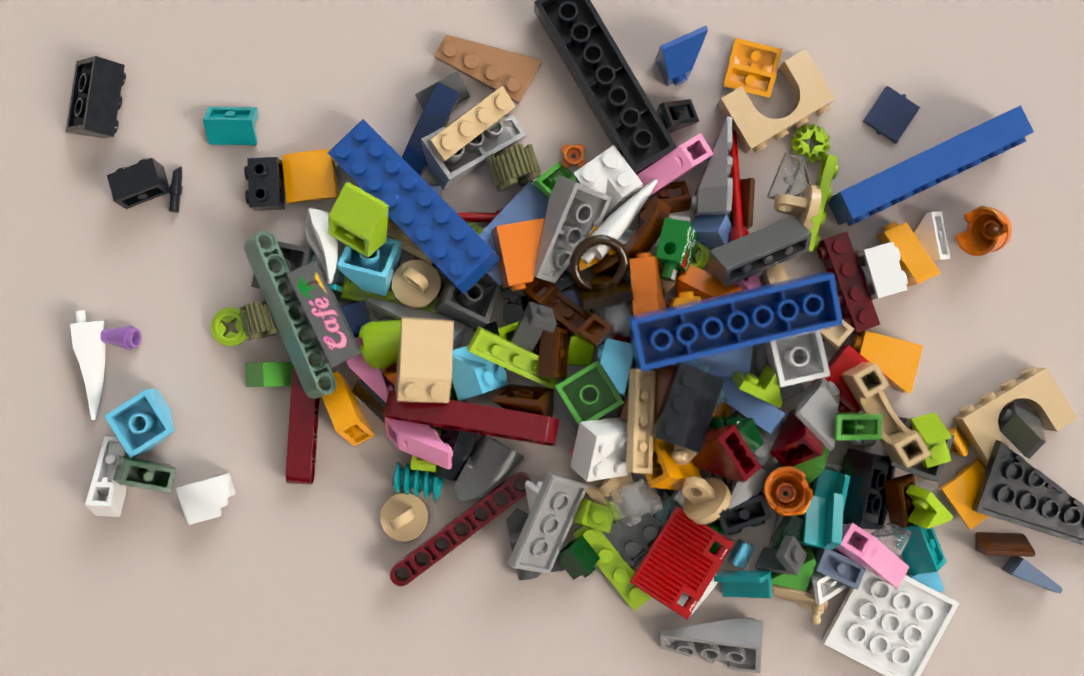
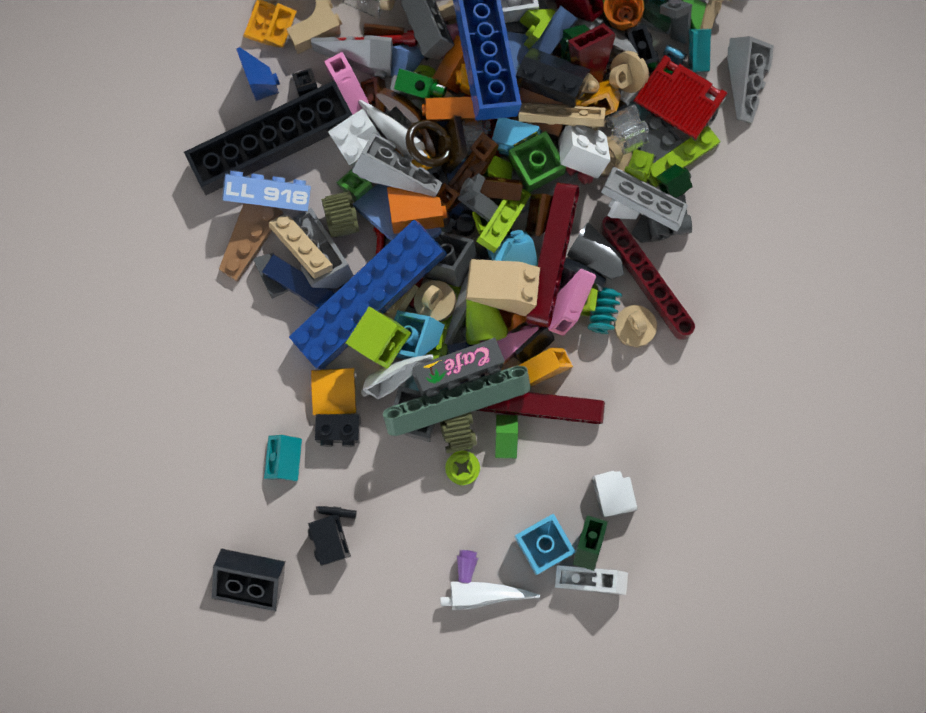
camera: 85 degrees left, 10 degrees down
(534, 78) = (266, 192): none -> light blue brick
(578, 150) = (328, 165): orange plate -> none

